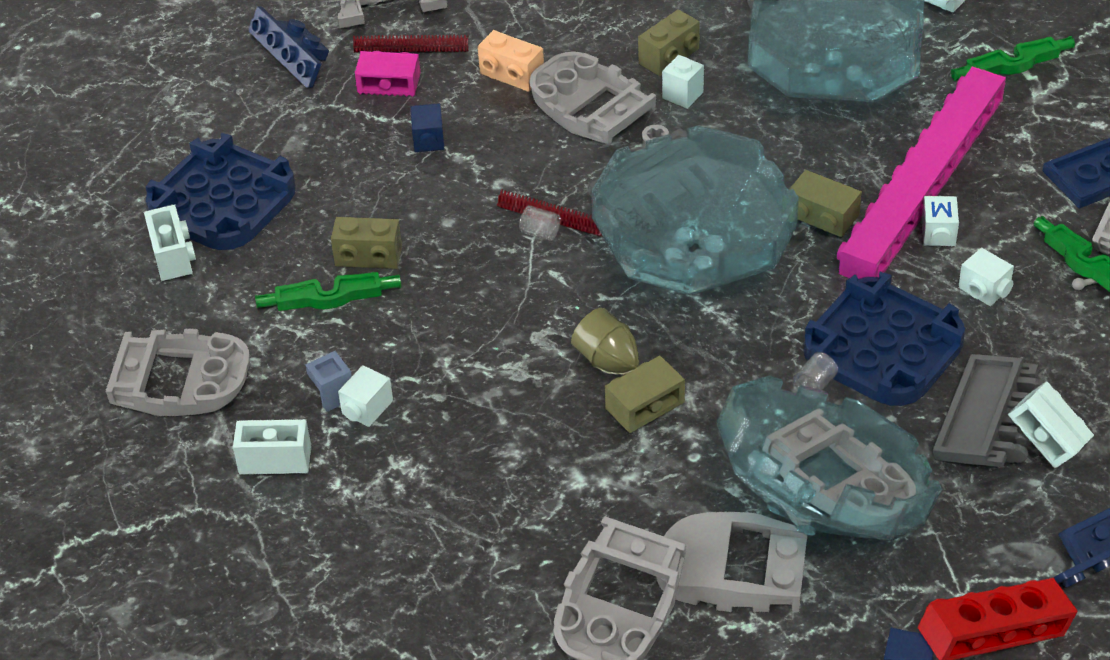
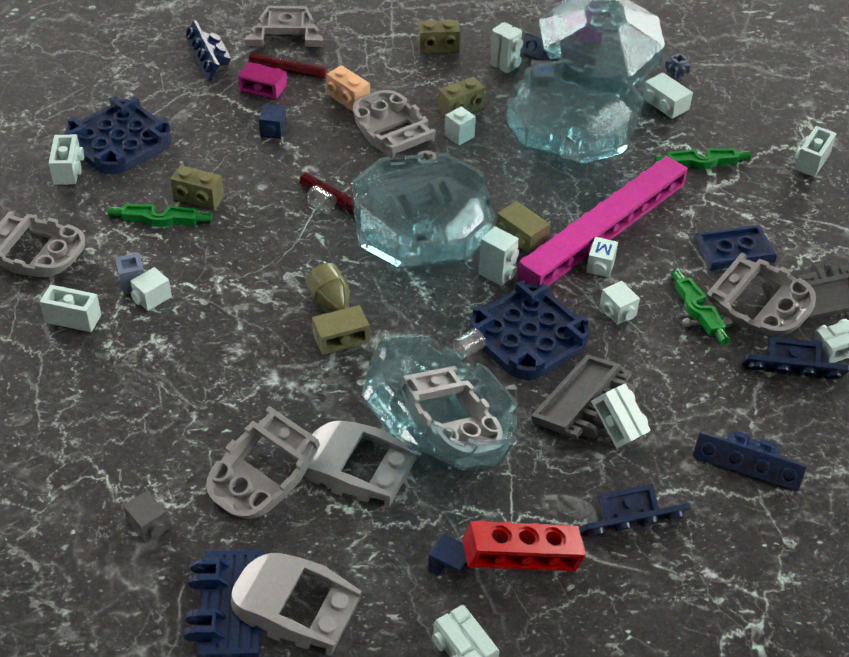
camera: 10 degrees right, 0 degrees up
(811, 249) = (498, 256): none -> light aqua brick

